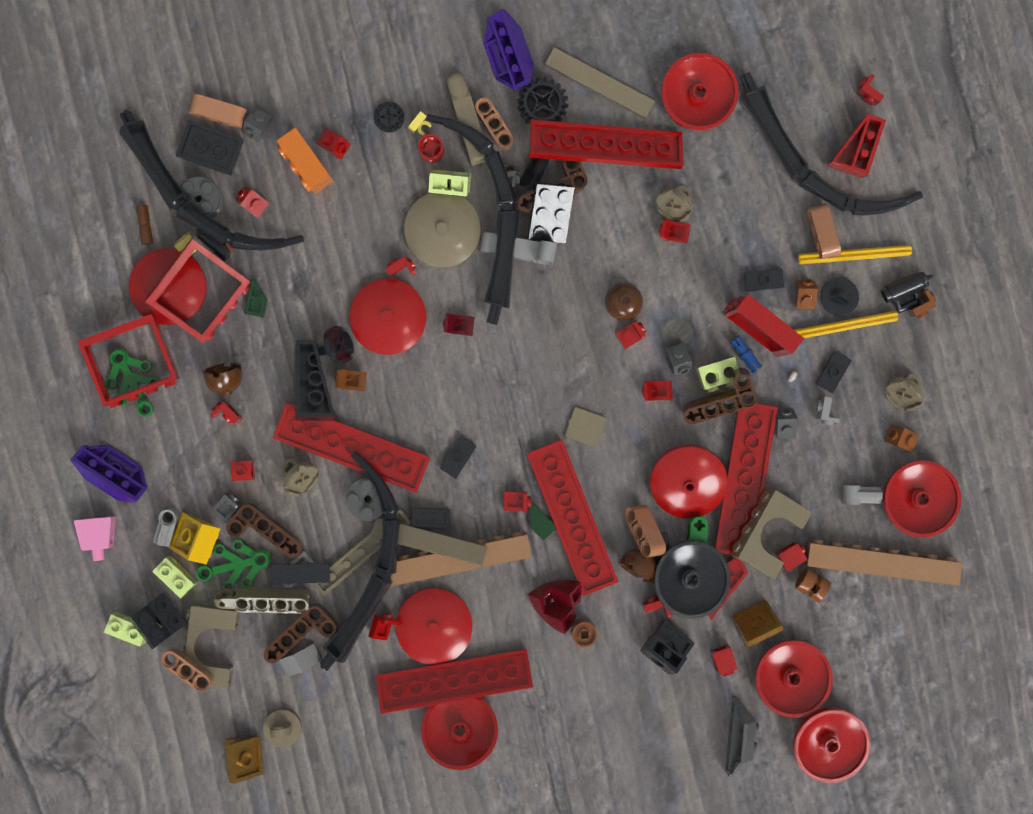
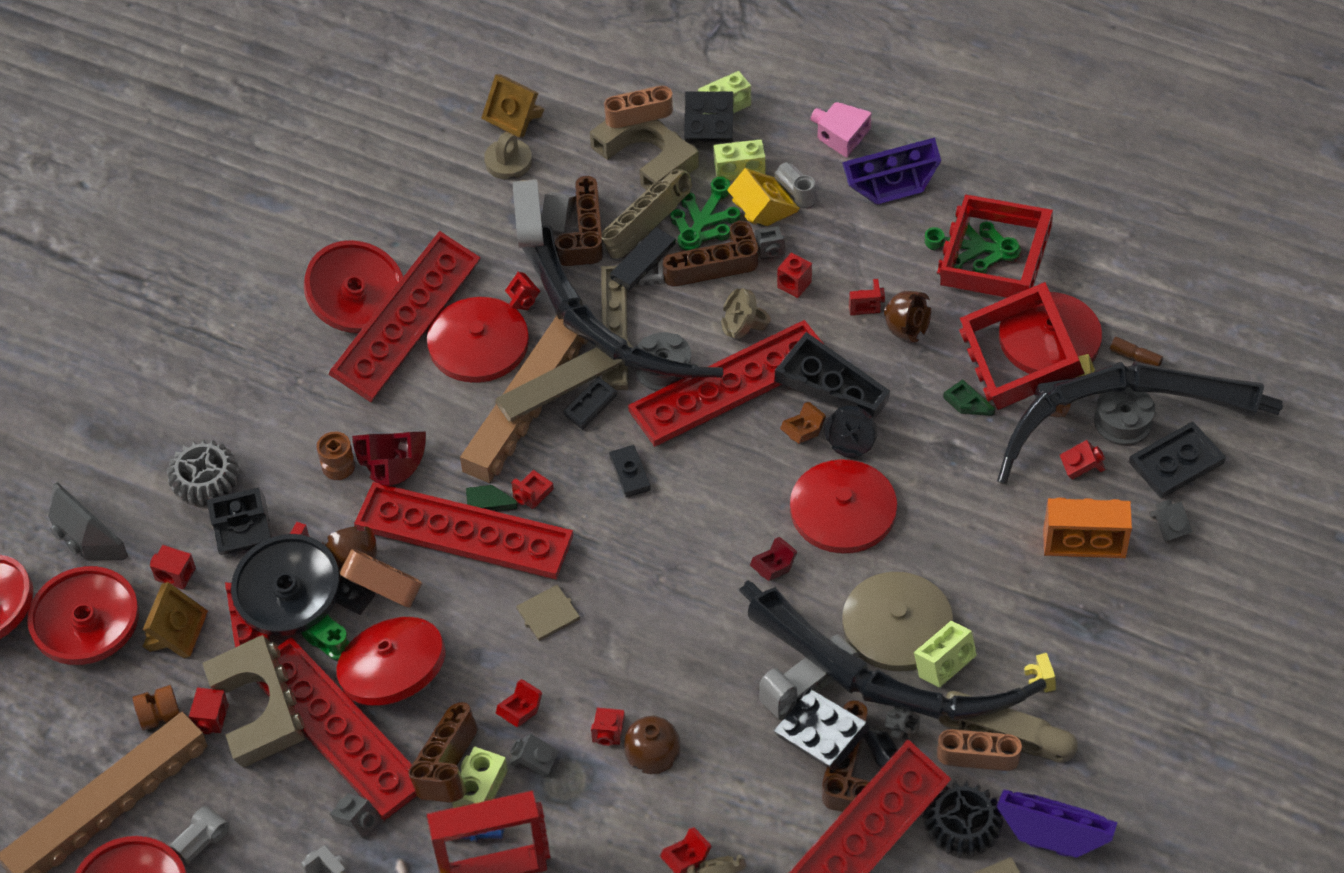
camera: 130 degrees right, 35 degrees down
(217, 111) = (1215, 491): nougat beam -> none
(330, 664) = (527, 213): none -> light grey beam
(333, 143) = (1086, 575): red bracket -> none
(395, 123) = (1079, 663): black gear -> none
(397, 265) = (886, 556): red bracket -> none
(430, 148) = (1001, 663): red wheel -> none
(660, 698) = (198, 464): none -> light grey gear

